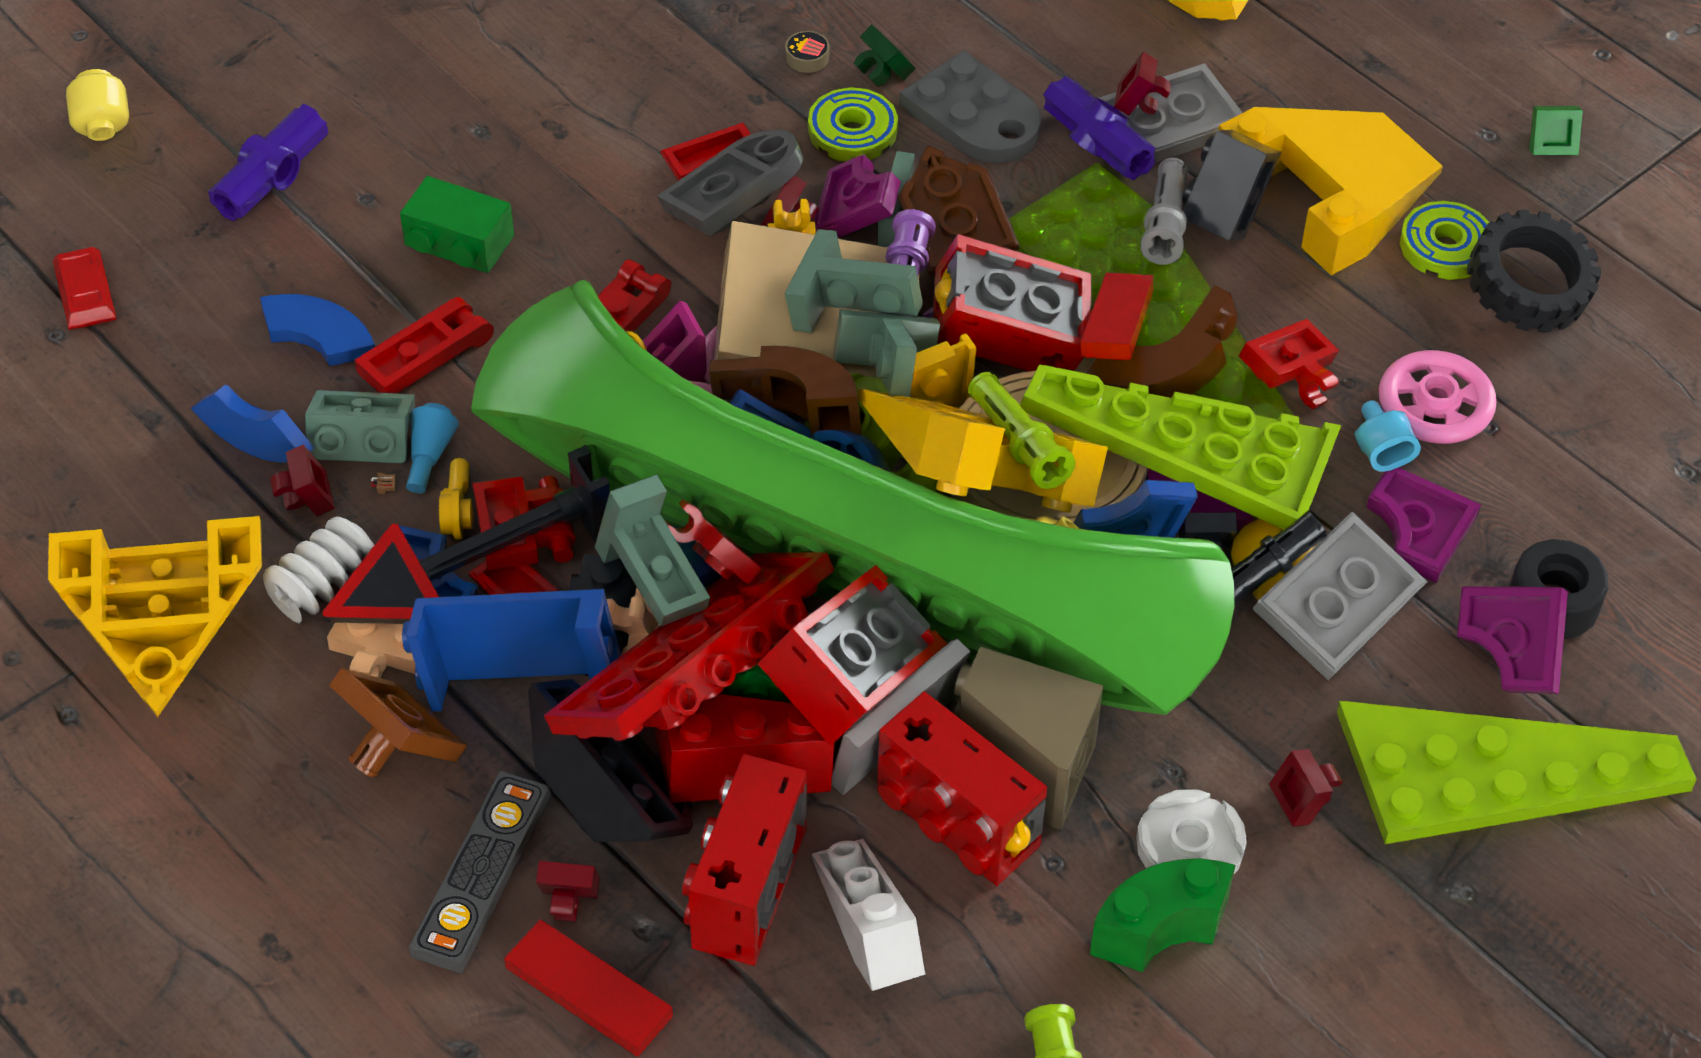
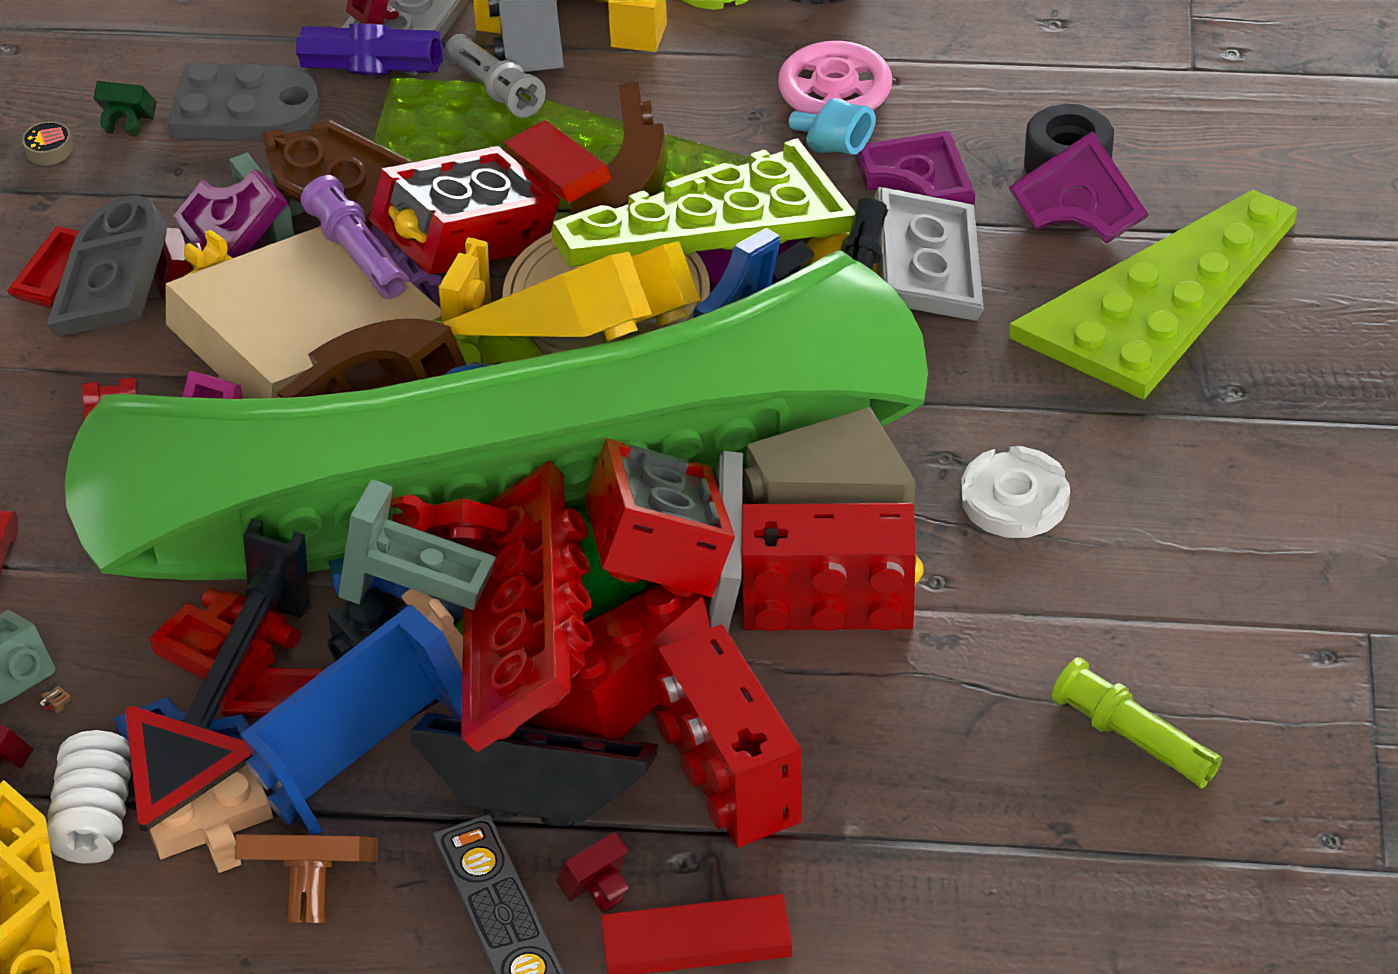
camera: 40 degrees left, 5 degrees down
(430, 433) = (63, 635): dark azure cone -> none
(454, 510) = (153, 669): yellow plate -> none
(848, 284) = (335, 259): sand green bracket -> none
(856, 106) = (160, 153): lime tile -> none
(870, 914) = (860, 711): white slope -> none
(886, 343) = (417, 286): sand green bracket -> none
(1029, 440) = (547, 263): lime pin -> none
(1160, 909) = (1061, 542): green brick -> none
(1293, 354) = (705, 114): red plate -> none
(1303, 786) = (1055, 396): dark red tile -> none

